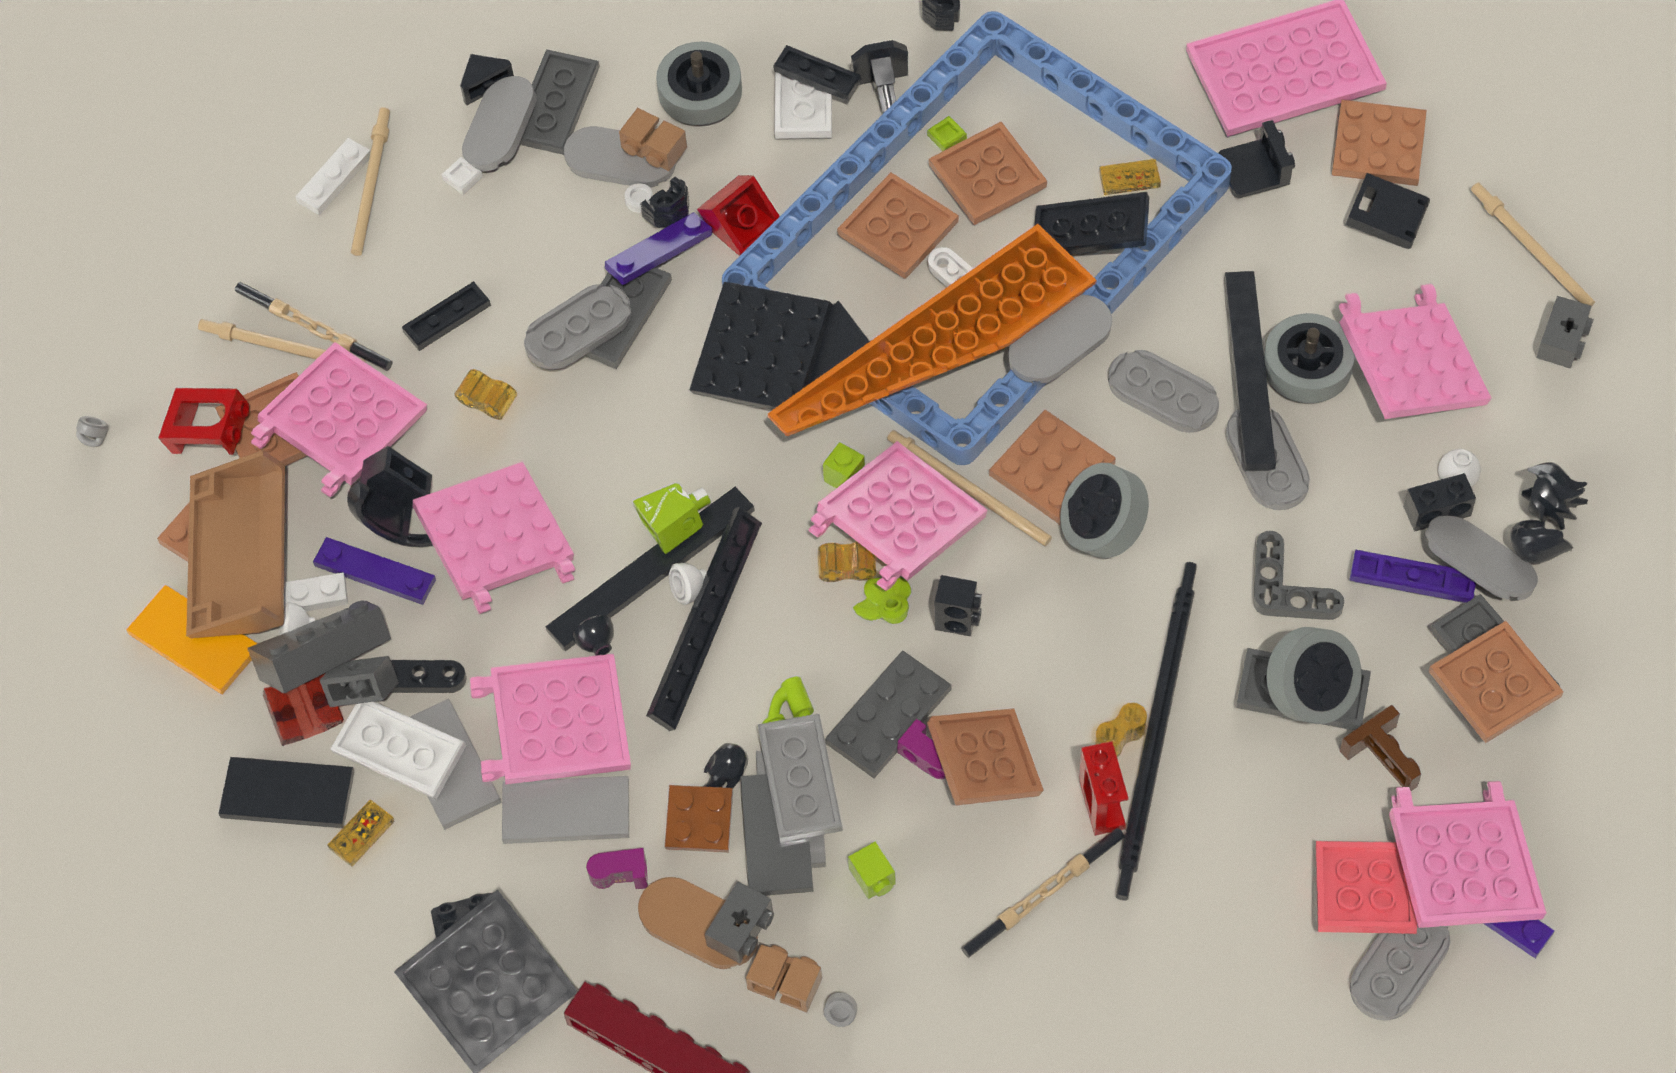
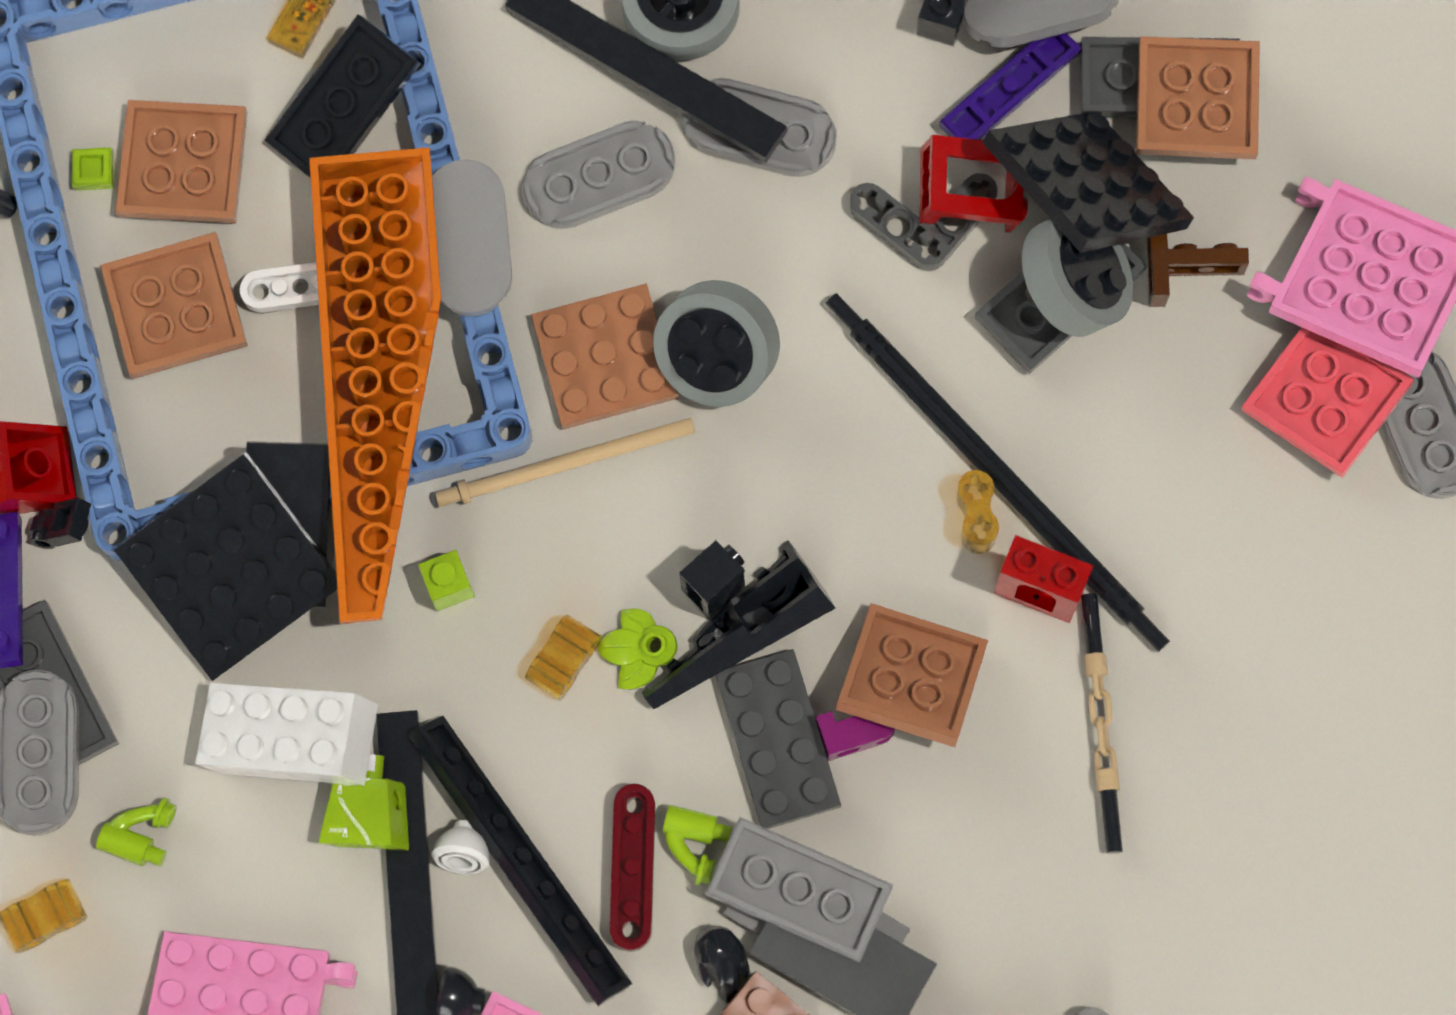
camera: 55 degrees left, 15 degrees up
(558, 404) = (131, 846): none -> lime plant
(684, 440) = (287, 733): none -> white brick
(720, 250) = (61, 525): none -> black plate
(746, 682) = (632, 867): none -> dark red plate
(872, 871) = (958, 886): lime brick -> none
(899, 512) = (550, 558): bright pink plate -> none
(965, 654) = (768, 611): none -> black wedge
(1325, 618) = (938, 203): none -> red panel
(1380, 644) = (1088, 180): none -> black plate

